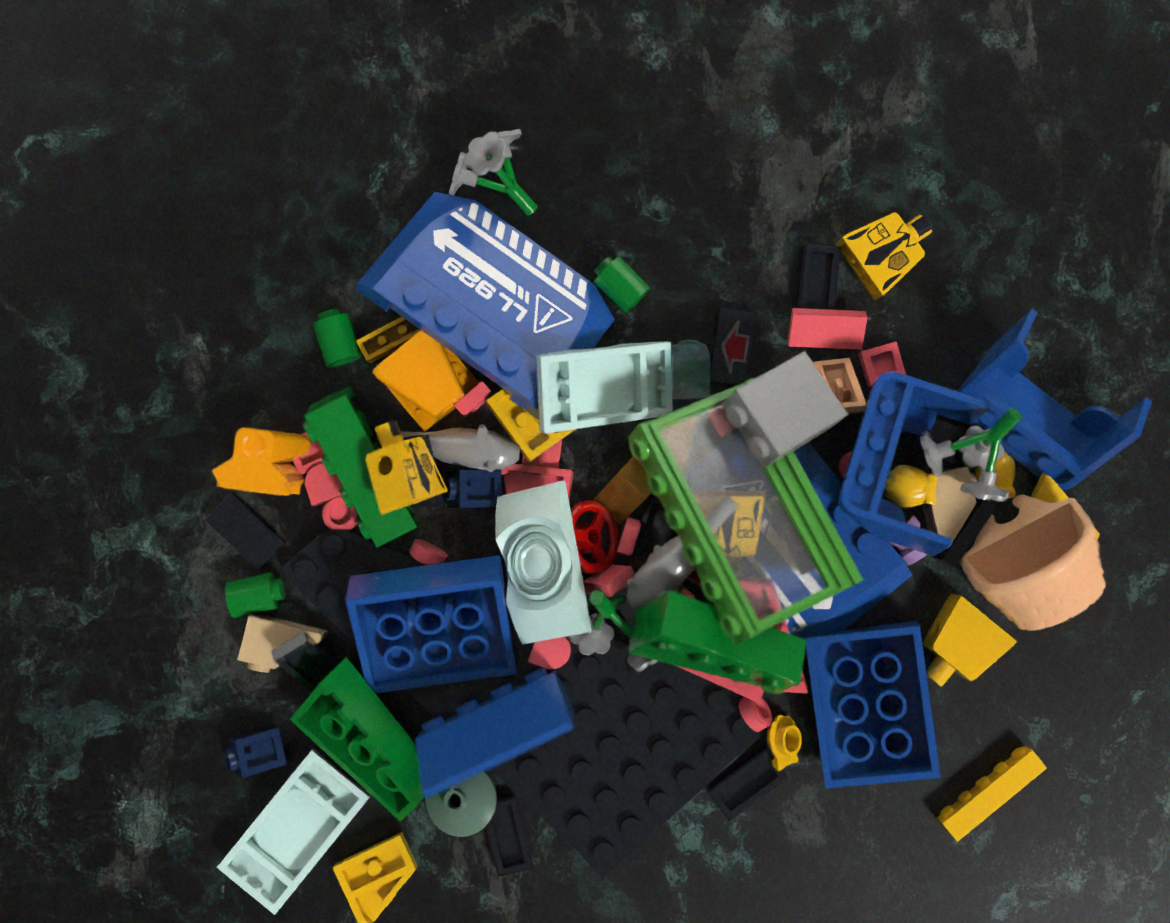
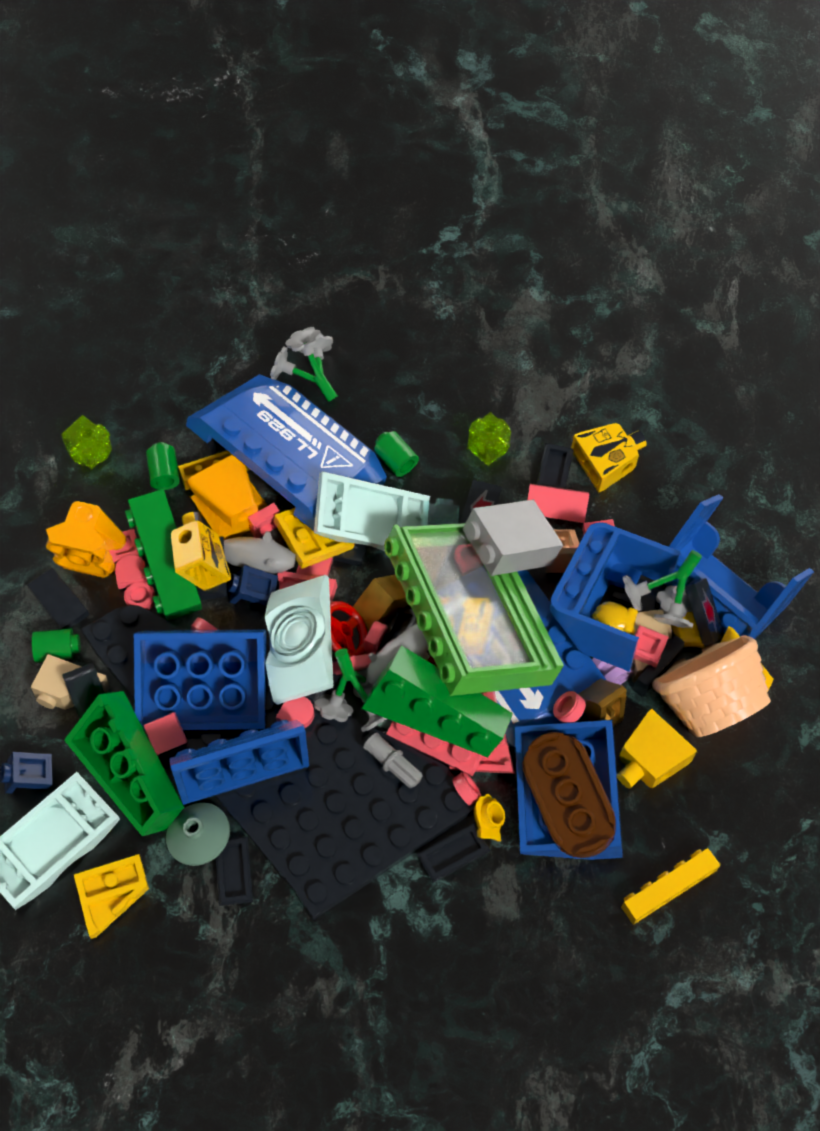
camera: 10 degrees right, 25 degrees down
(237, 321) = (87, 442): none -> clear neon green brick
(404, 696) = (165, 733): none -> coral tile
(670, 697) = (393, 760): none -> light grey axle
(727, 260) = (489, 438): none -> clear neon green brick
(867, 611) = (569, 707): none -> coral tile
(876, 722) = (569, 795): none -> reddish brown tile
(903, 594) = (604, 701): none -> pearl gold slope
(954, 520) = (649, 646): none -> coral tile
(1018, 464) = (704, 611): none -> black tile

